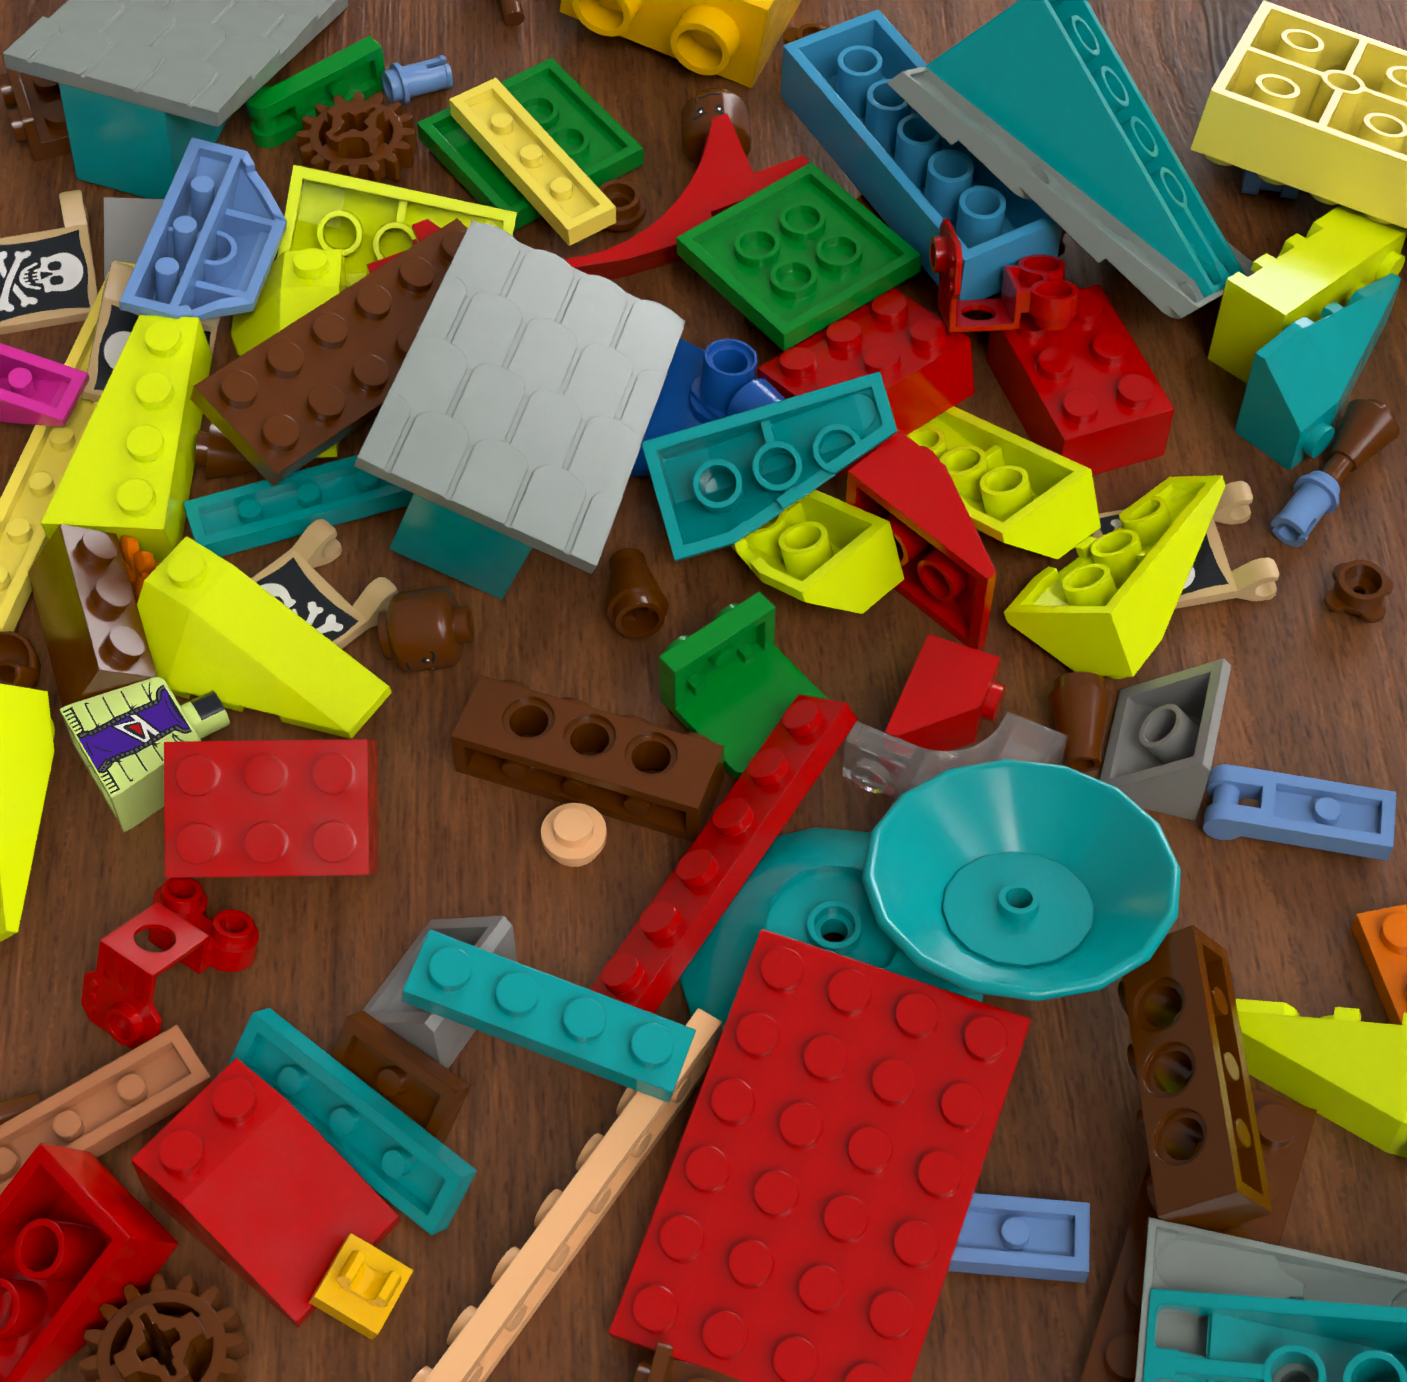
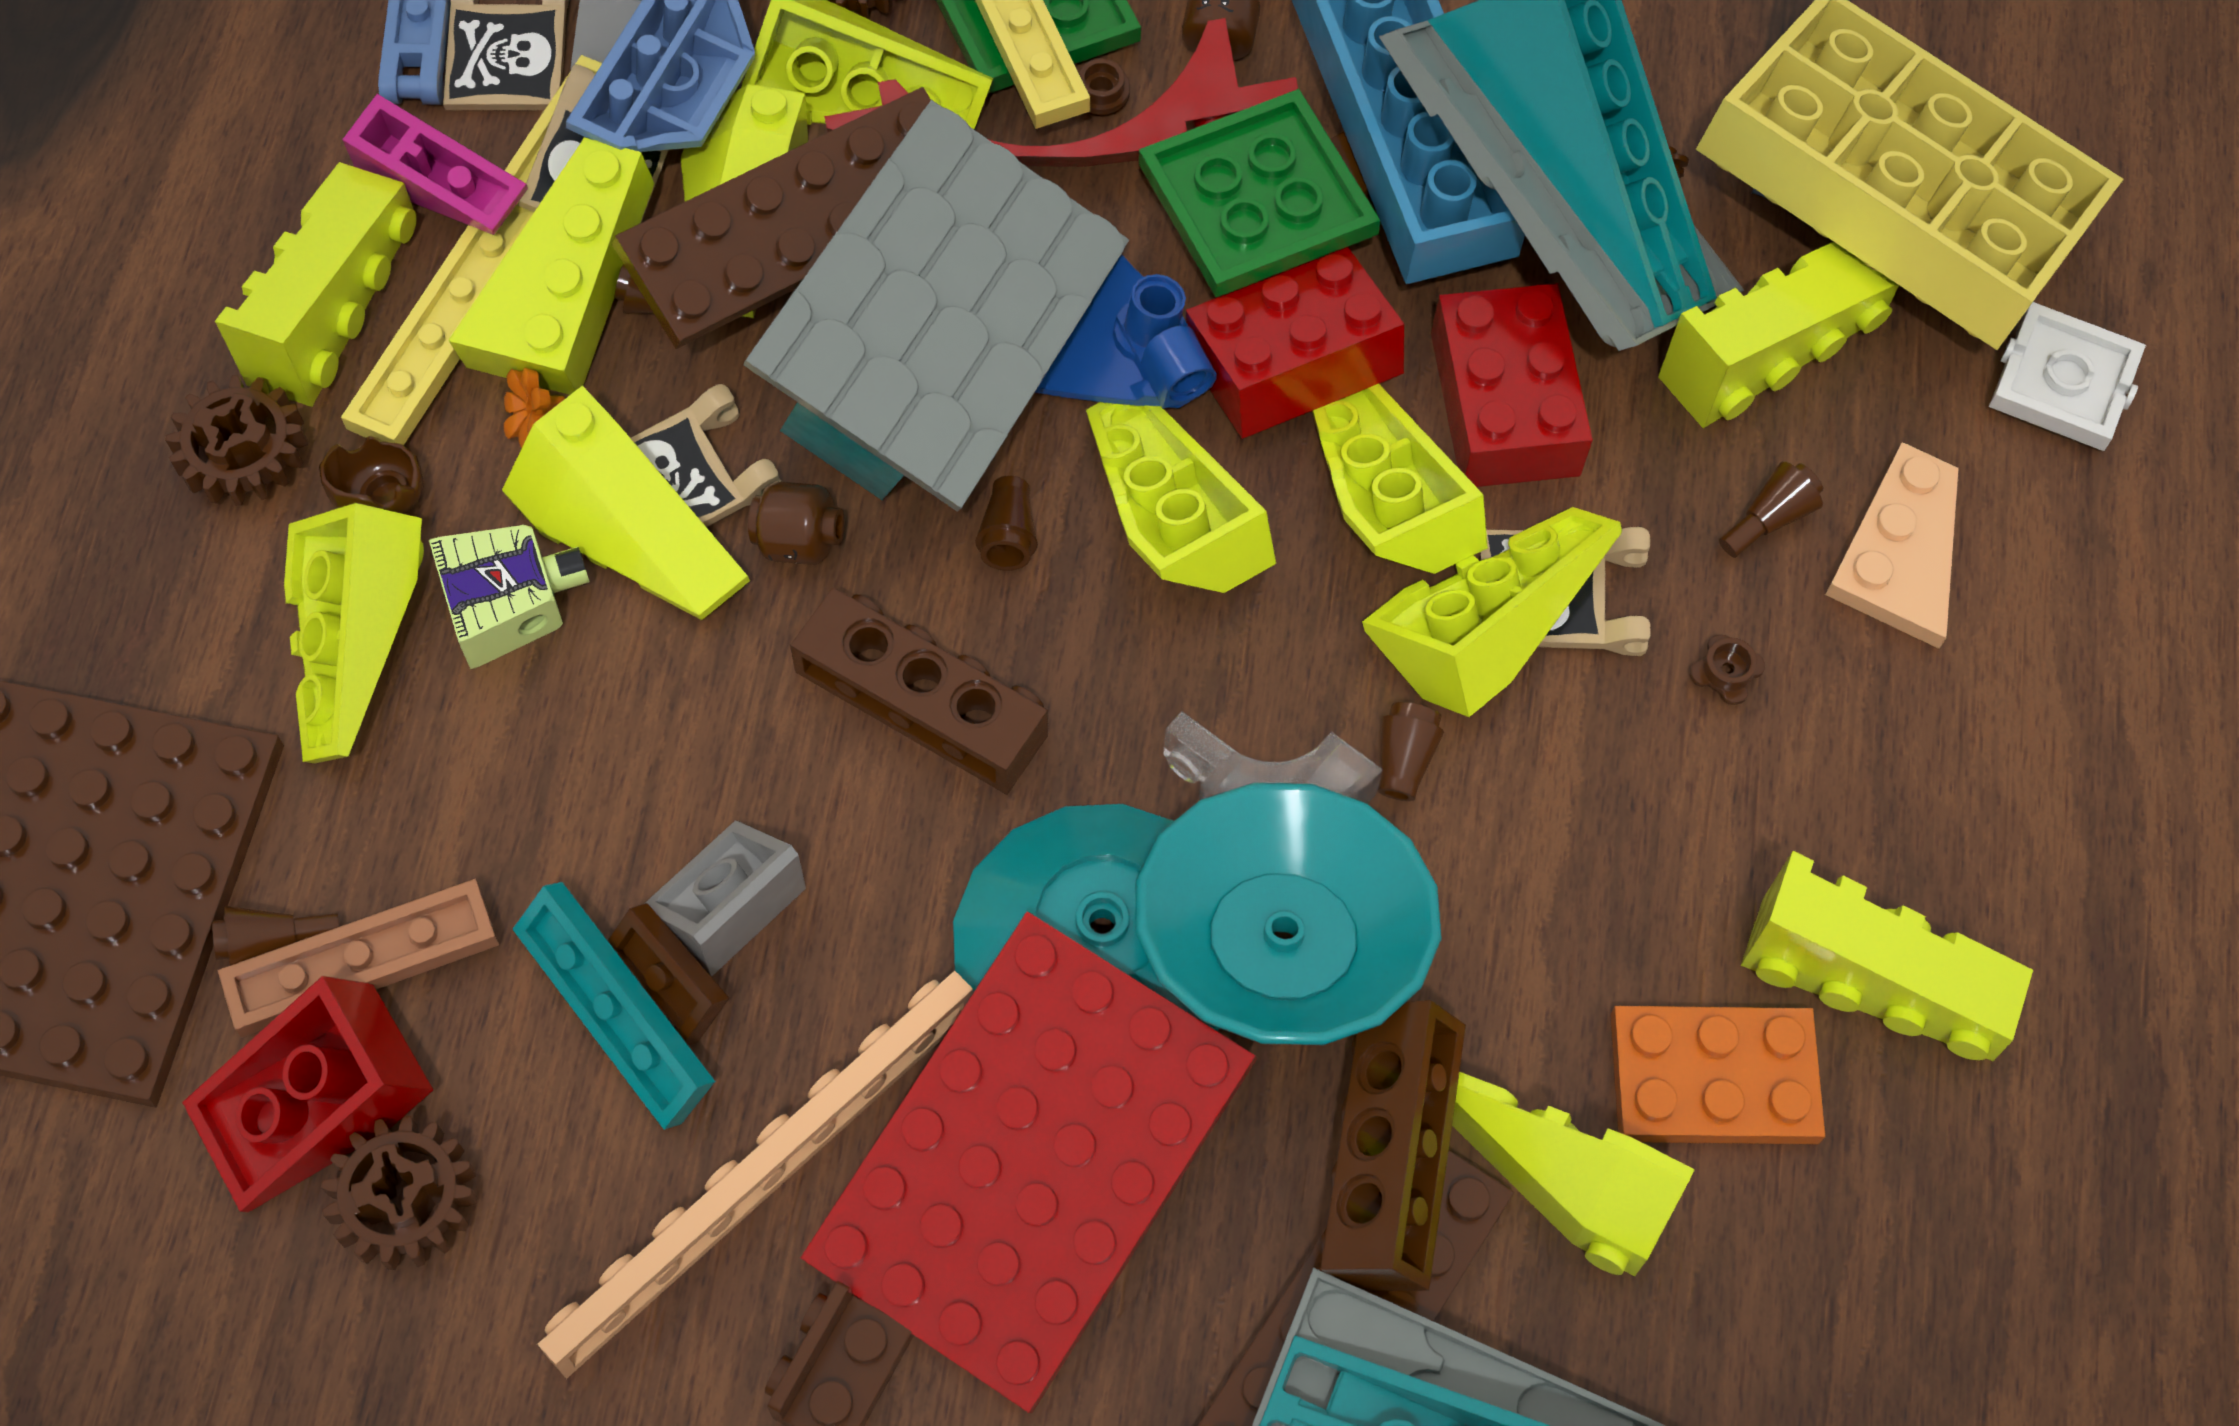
camera: 10 degrees right, 10 degrees up
(89, 614) = (477, 446): reddish brown brick -> none
(122, 986) = (433, 826): red piece -> none
(260, 1188) = (521, 1057): red slope -> none
(269, 513) = (652, 367): teal plate -> none
(271, 808) = (604, 684): red brick -> none
(361, 1286) = (589, 1164): yellow tile -> none
(548, 1015) = (809, 953): teal plate -> none
(574, 834) = (888, 763): light nougat plate -> none
(725, 853) = (1020, 821): red plate -> none
(732, 680) = (1085, 650): green bracket -> none
(753, 465) = (1145, 423): teal wedge -> none
(934, 536) = (1297, 487): red slope -> none
(947, 696) = (1279, 701): red slope -> none
(1025, 1238) = (1202, 1254): medium blue plate -> none
(1029, 287) = (1479, 283): red piece -> none
(1167, 739) = (1482, 789): light grey slope -> none
(1300, 811) = (1594, 890): medium blue plate -> none
(1308, 374) = (1747, 425): teal wedge -> none
(1313, 497) = (1713, 558): medium blue pin -> none

